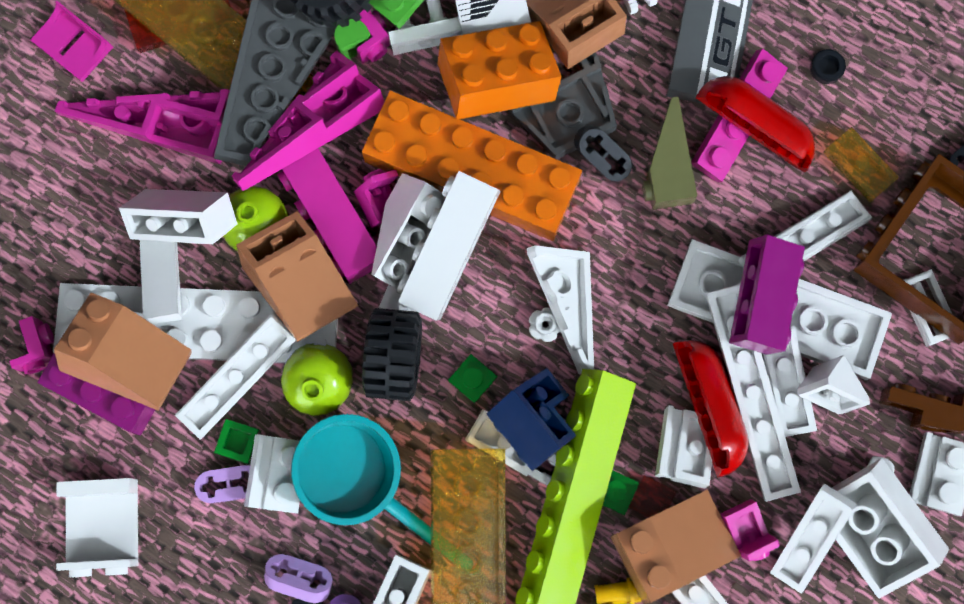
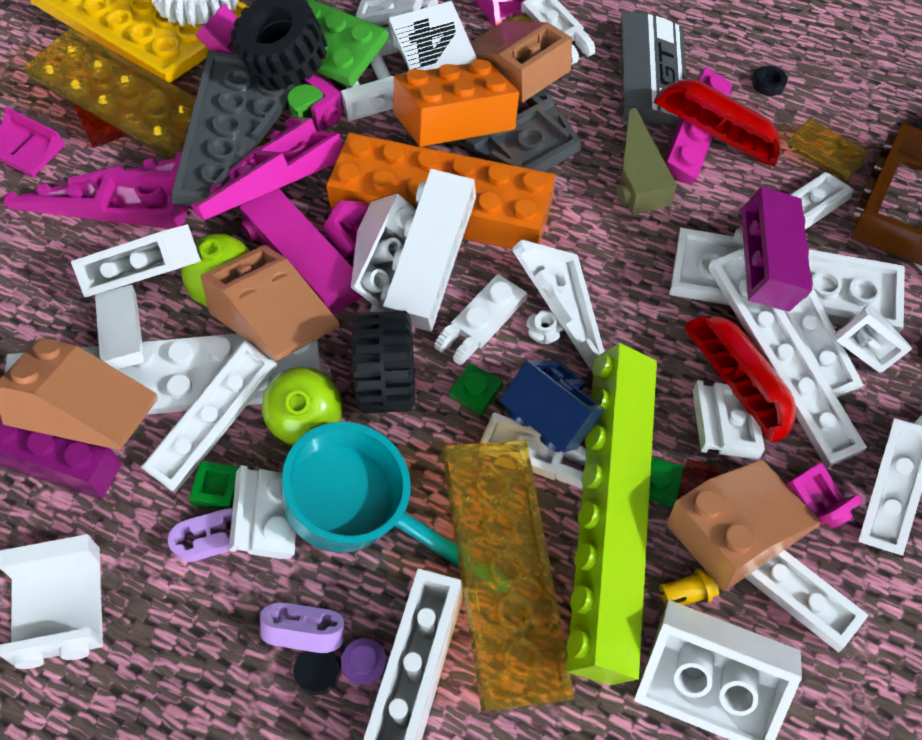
camera: 10 degrees left, 20 degrees down
(491, 304) = (482, 318): none -> white hinge
(608, 147) = (572, 165): black beam -> none

